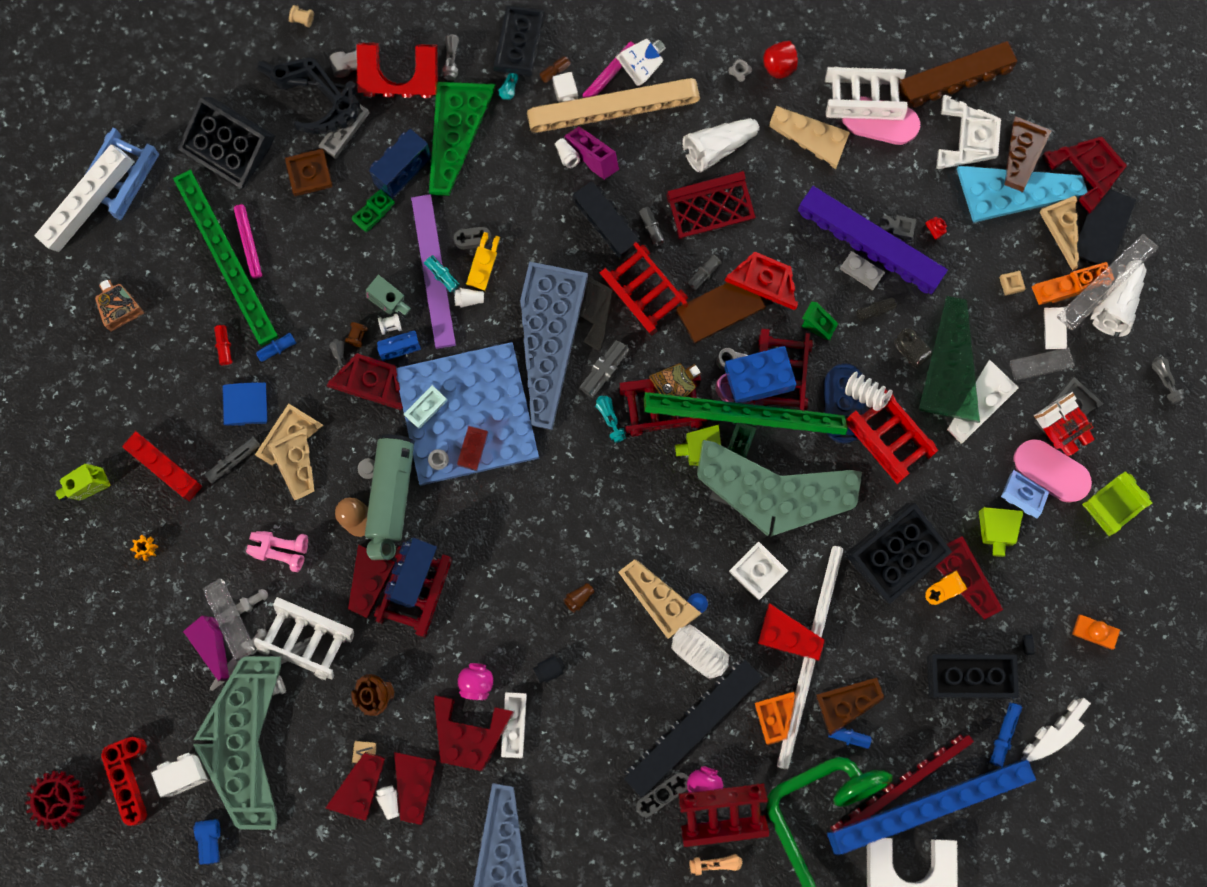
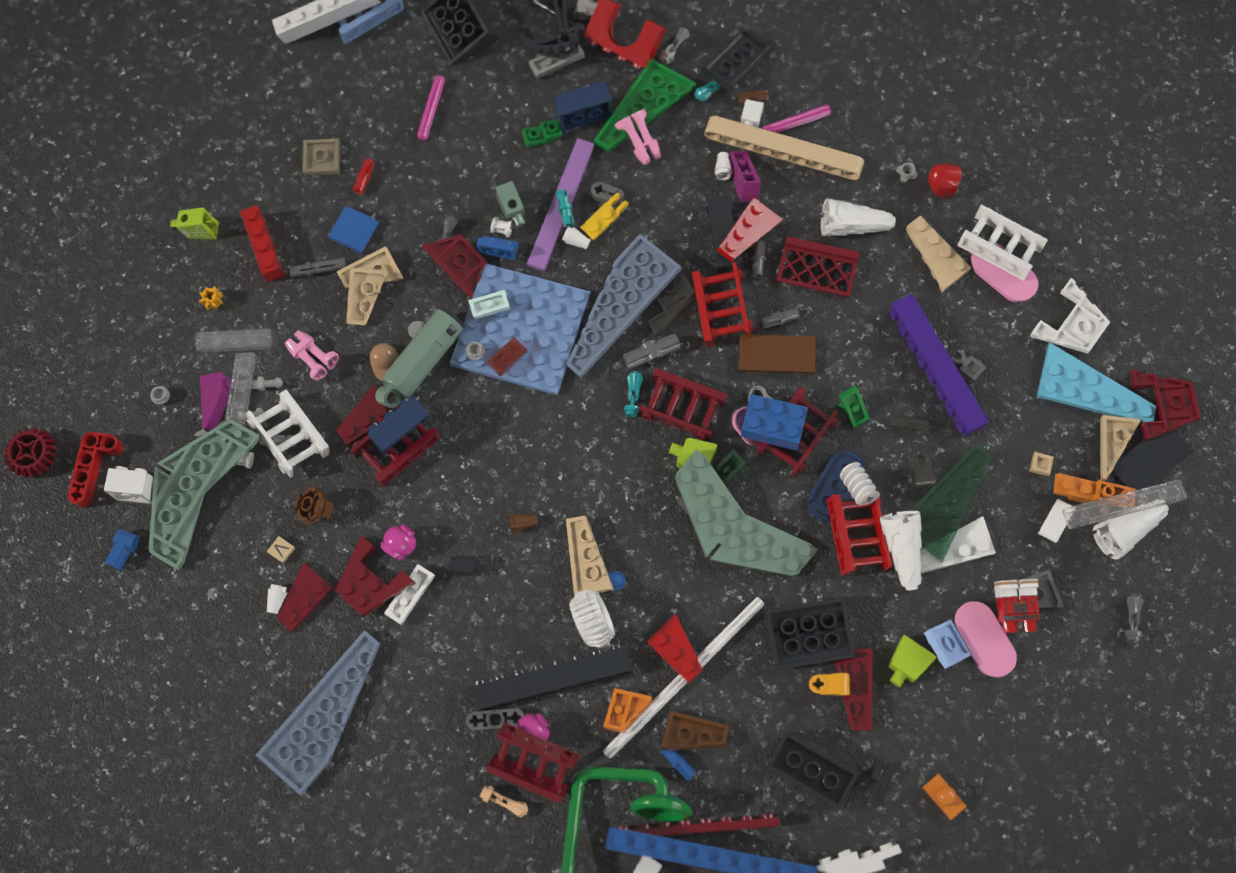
camera: 35 degrees right, 5 degrees down
(116, 305) = (302, 105): torso -> none
(151, 671) = (160, 395): none -> light grey plate
(167, 348) = (321, 157): none -> dark tan tile
(192, 576) = (234, 340): none -> clear tile
(225, 258) = (406, 112): green plate -> none
(276, 347) = (402, 199): blue axle -> none
(308, 172) = (509, 78): reddish brown plate -> none
(356, 334) = (470, 221): reddish brown bush -> none
(358, 789) = (259, 574): dark red wing -> none
(488, 167) = (640, 147): none -> bright pink piece
(628, 202) = (748, 229): none -> wing
(641, 60) = (828, 122): white torso -> none
(675, 380) = (700, 390): torso -> none
(744, 413) = (744, 446): green plate -> none
(758, 571) = (682, 582): white plate -> none
(765, 278) = (828, 349): red wing -> none
(862, 270) = (915, 386): light grey plate -> none
(937, 227) = (1001, 383): red plate -> none
(938, 424) = (904, 544): none -> white cone
(957, 74) = (1093, 267): reddish brown brick -> none
(1007, 730) = (808, 841): blue pin -> none
(1024, 151) = (1114, 360): reddish brown wing -> none
(1041, 364) = (1028, 545): clear tile -> none
(1117, 503) = (1027, 698): lime panel -> none

